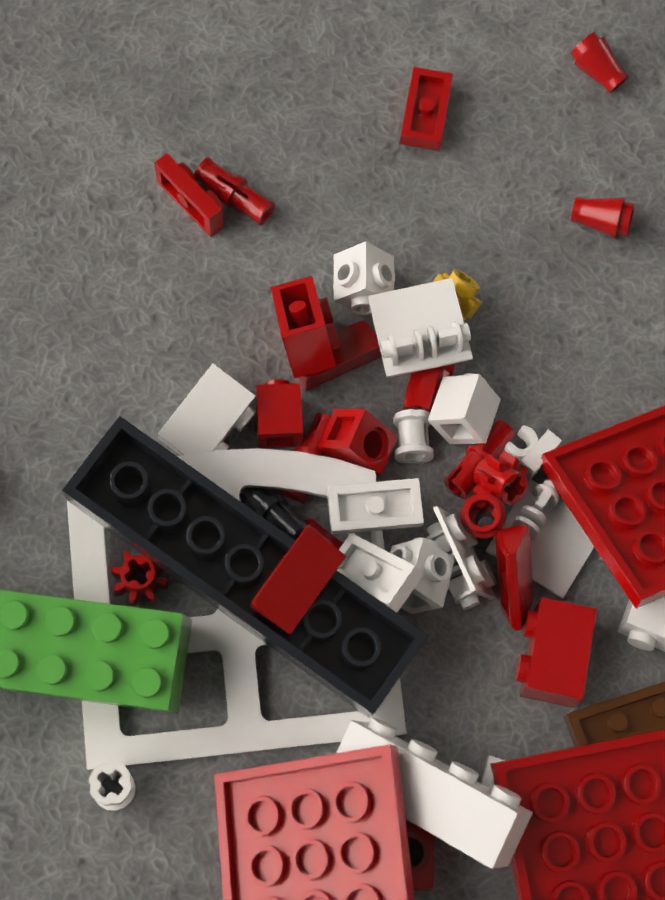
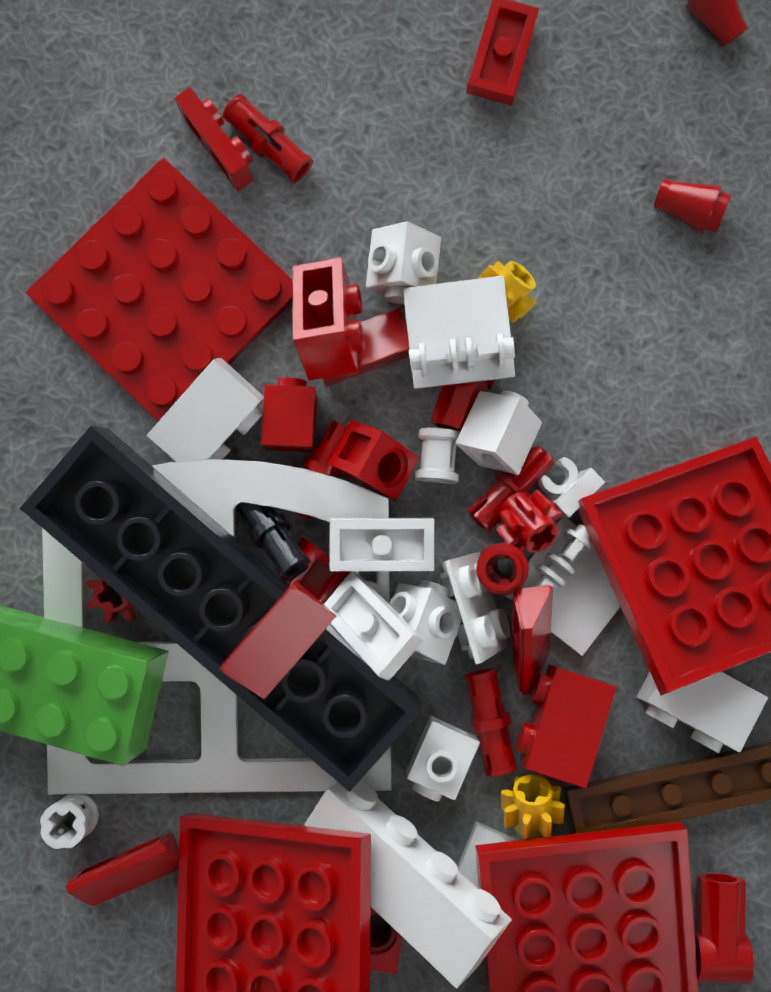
camera: 10 degrees right, 15 degrees up
(153, 321) = (163, 289): none -> red plate
(169, 831) = (126, 870): none -> red slope
(449, 696) = (441, 759): none -> white brick
(489, 661) = (490, 722): none -> red pin
(537, 728) = (532, 806): none -> yellow gear

